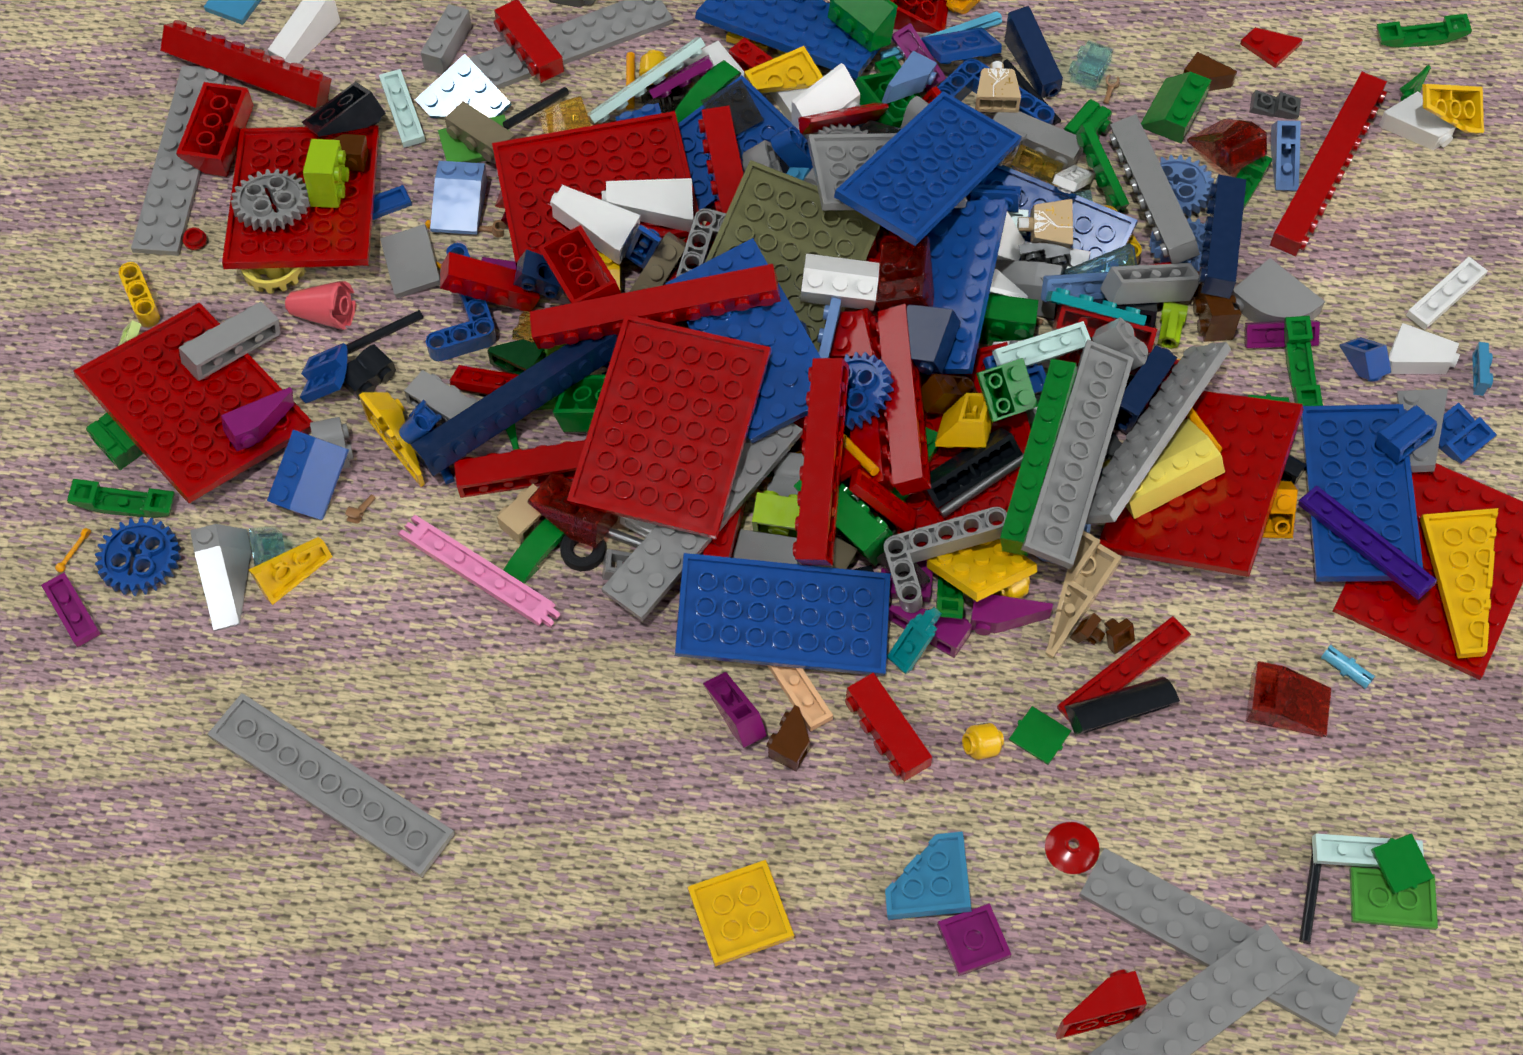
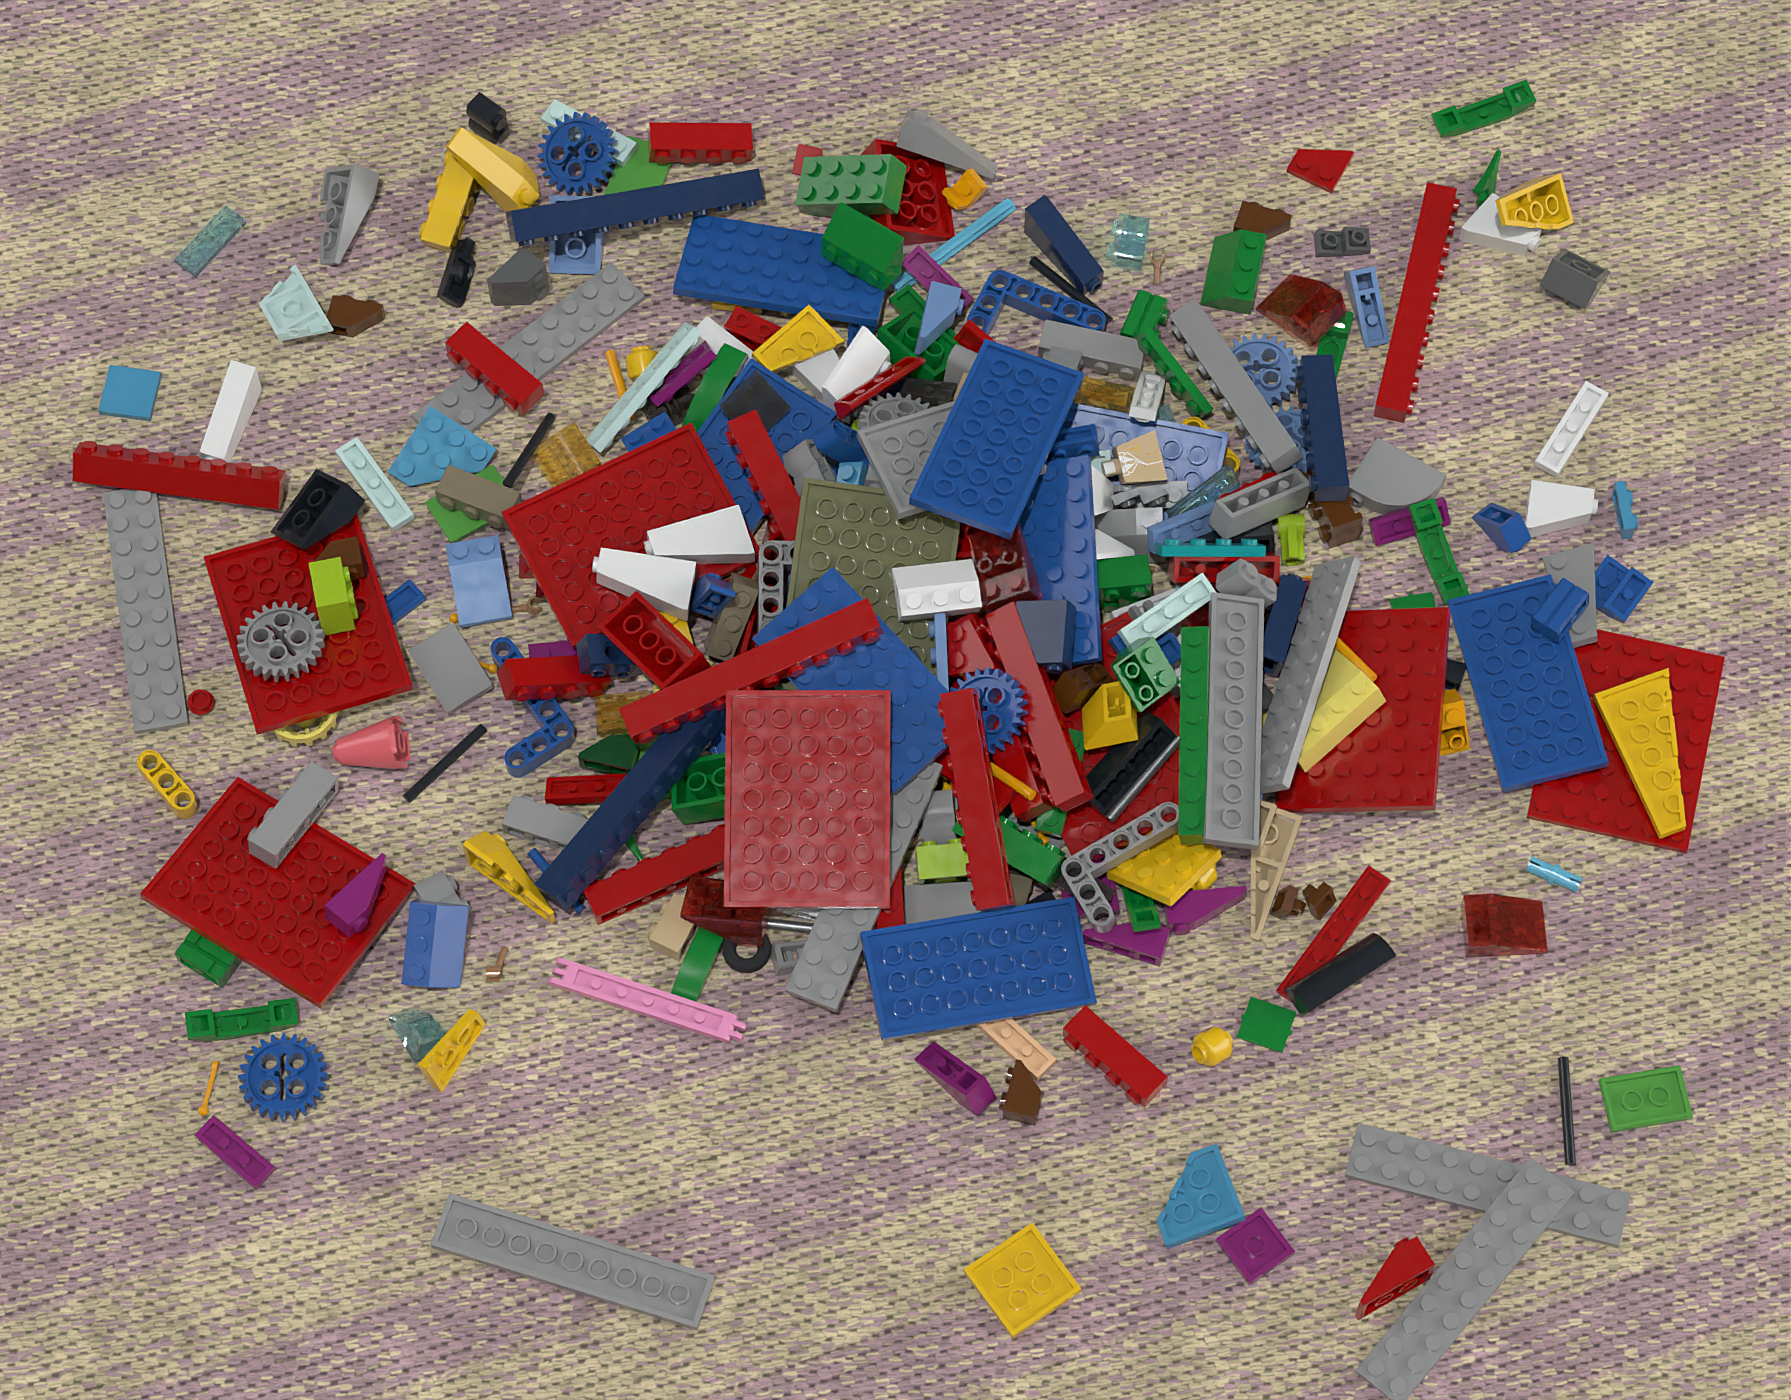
camera: 15 degrees left, 5 degrees up
(130, 332) = (175, 834): yellowish green plate -> none
(215, 128) = (176, 563): red slope -> none
(223, 567) = (378, 1065): light grey wedge -> none
(324, 373) = (407, 824): blue slope -> none
(368, 371) = (450, 811): black brick -> none
(419, 423) = (532, 856): blue piece -> none
(446, 39) = (396, 386): light grey brick -> none
(882, 500) = (1047, 823): red plate -> none
(914, 640) = (1117, 961): teal hinge -> none
(962, 45) = (980, 254): blue plate -> none
(998, 90) = (1037, 306): tan torso -> none
(1069, 859) = (1321, 1142): red dish -> none
(1347, 849) = (1611, 1060): light aqua plate -> none
(1367, 542) = (1544, 739): dark purple tile -> none
(1402, 863) = (1646, 1063): green piece -> none
(1474, 175) = (1574, 279): none -> dark grey slope

